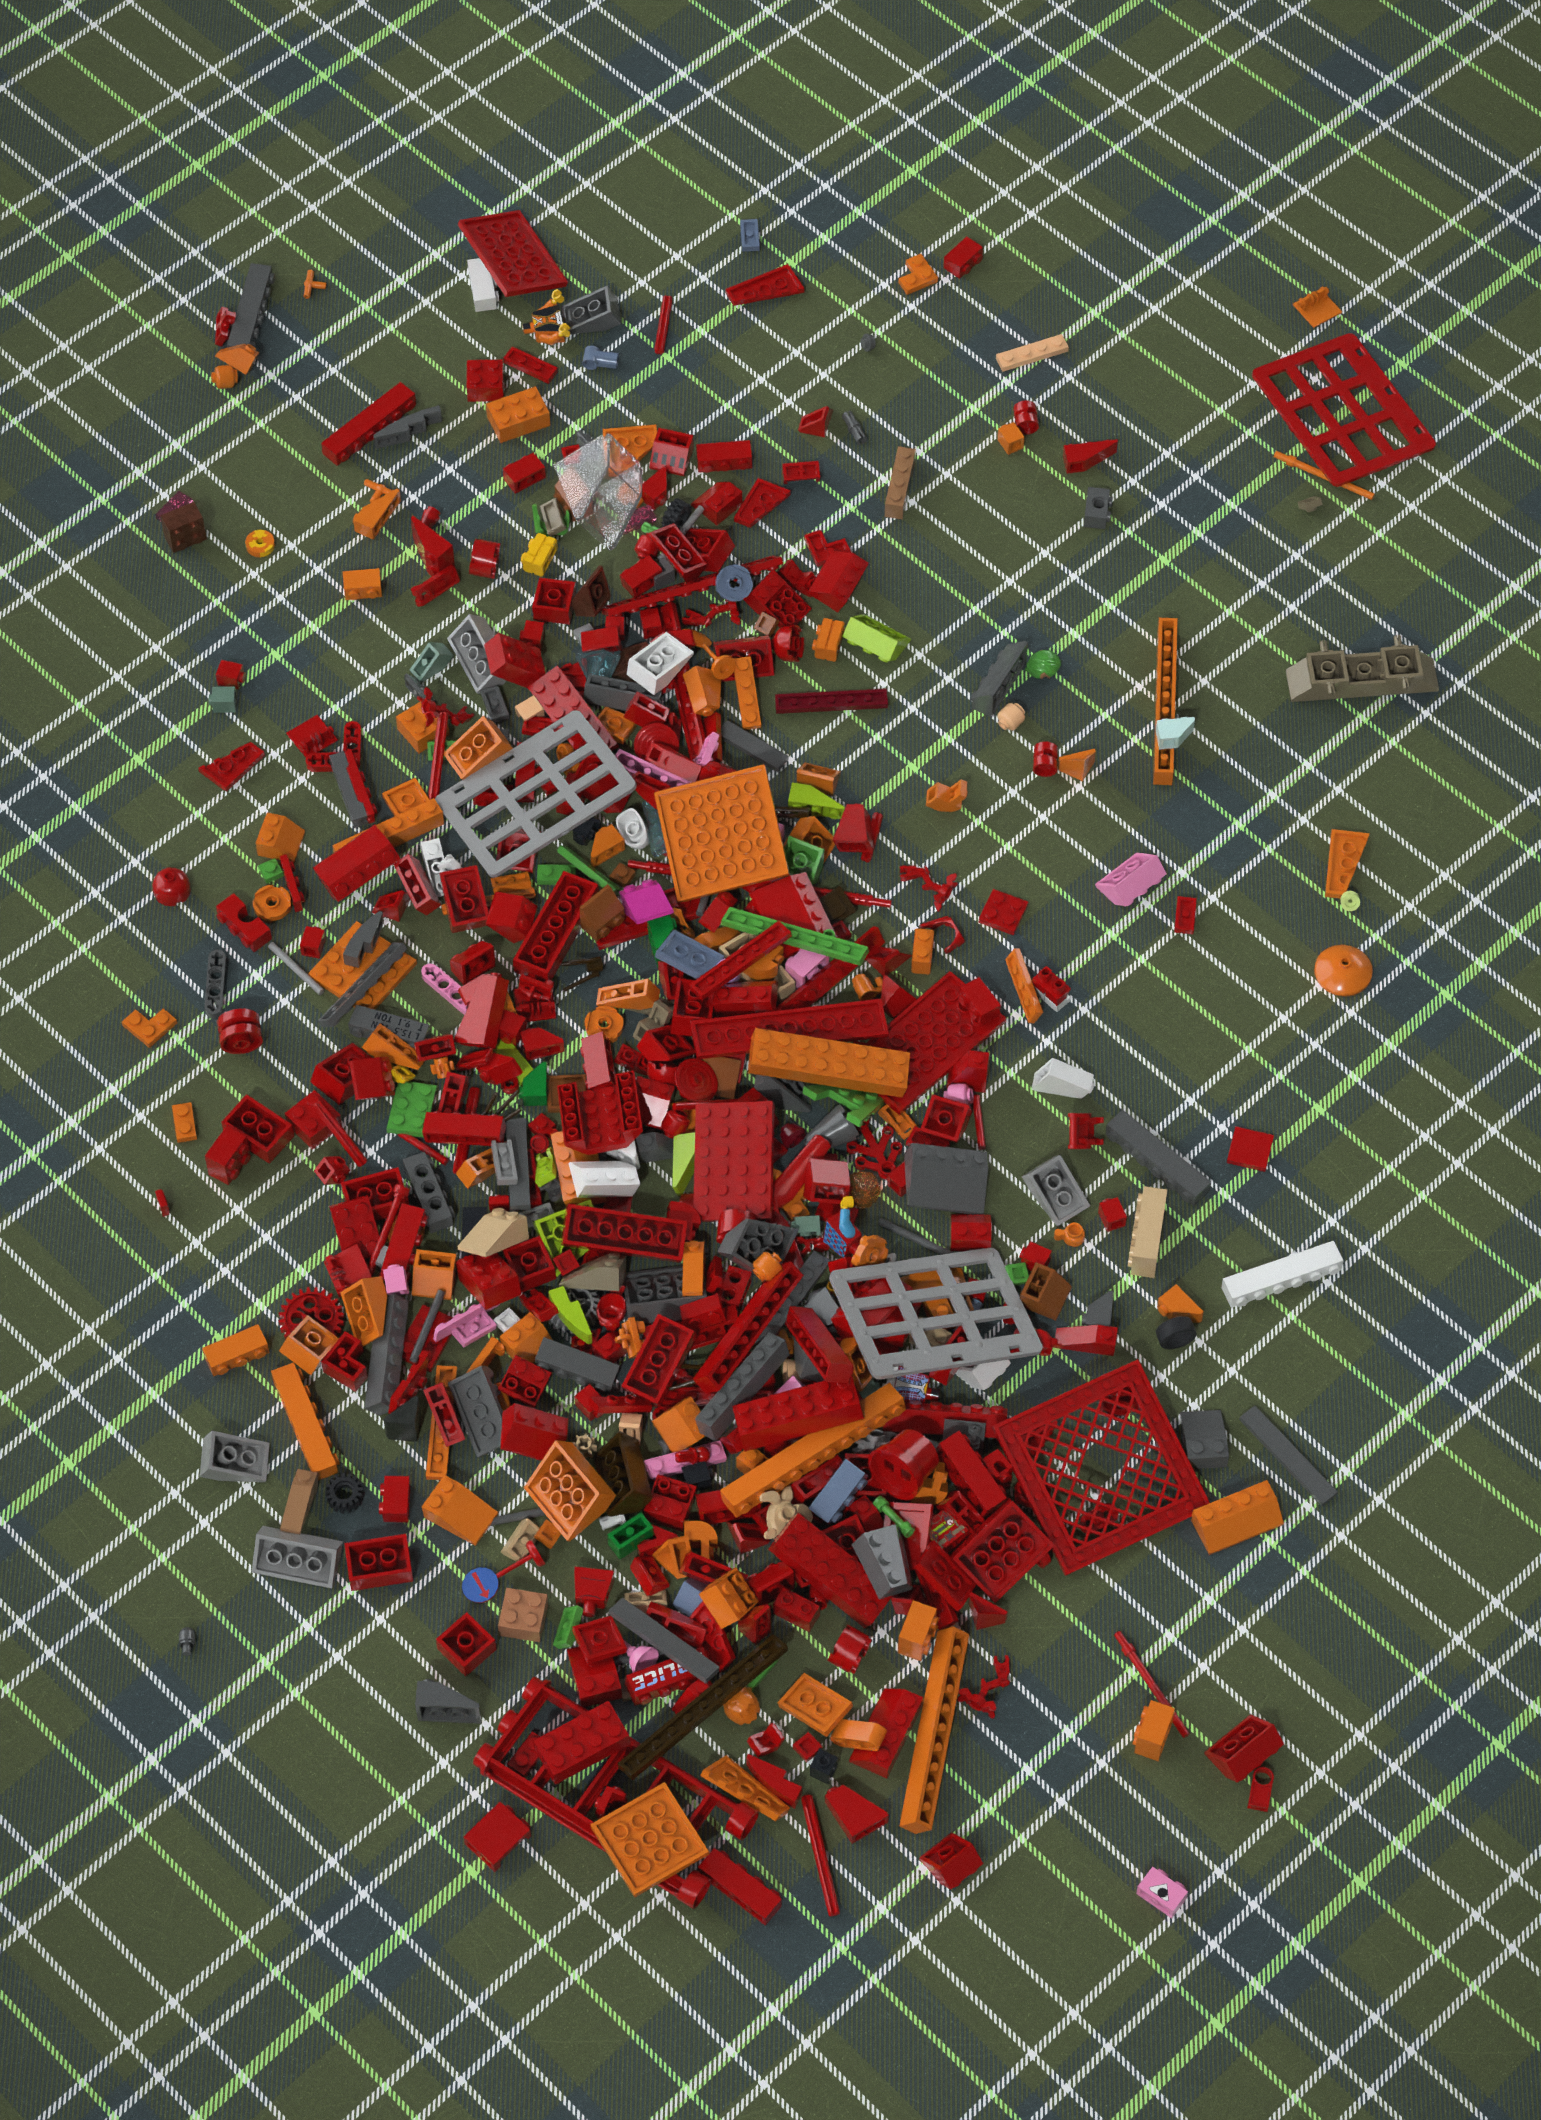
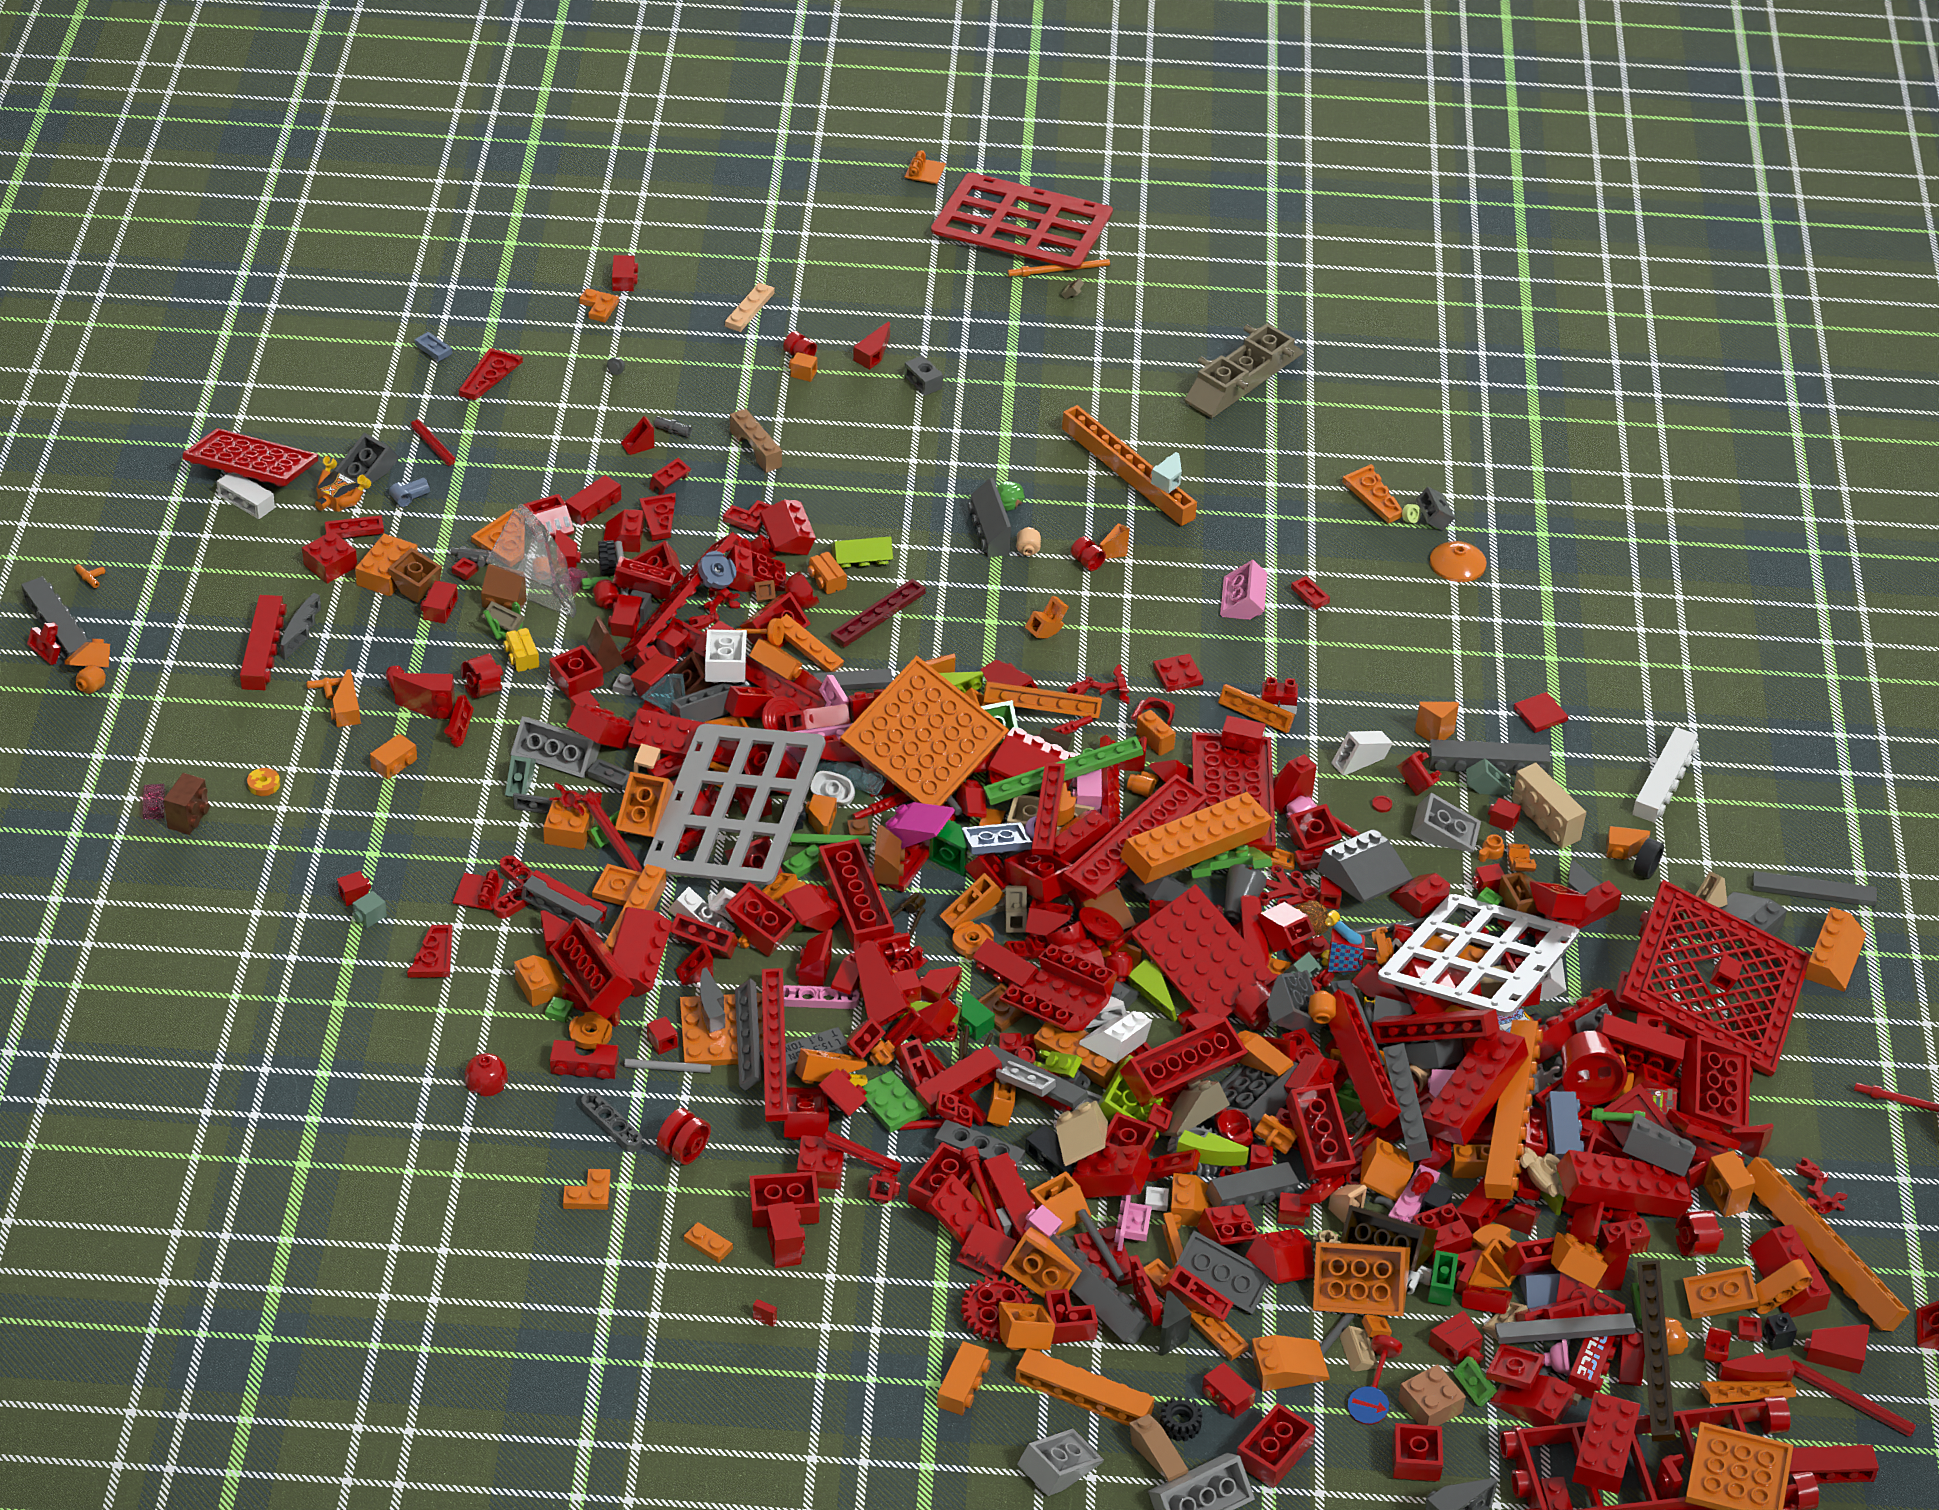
camera: 45 degrees left, 15 degrees down
(302, 856) = (591, 968): none -> red brick
(323, 809) = (552, 929): none -> red slope
(367, 1006) = (774, 1045): none -> red plate
(436, 1148) = (951, 1110): none -> red slope
(499, 1201) = (1048, 1116): red bracket -> none
(524, 436) = (414, 574): none -> dark orange slope
(862, 863) = (1043, 699): none -> orange plate
(913, 1250) = (1402, 932): none -> red piece
(1033, 1135) = (1382, 804): none -> red piece
(1054, 1313) = (1557, 901): none -> red slope
(1076, 1261) = (1519, 858): none -> orange slope
(1103, 1469) = (1726, 973): none -> red brick
(1133, 1173) = (1487, 779): none -> sand green slope
(1148, 1098) = (1436, 720): none -> orange slope
(1188, 1399) = (1713, 890): none -> tan slope
(1372, 910) = (1435, 508): none -> dark grey brick

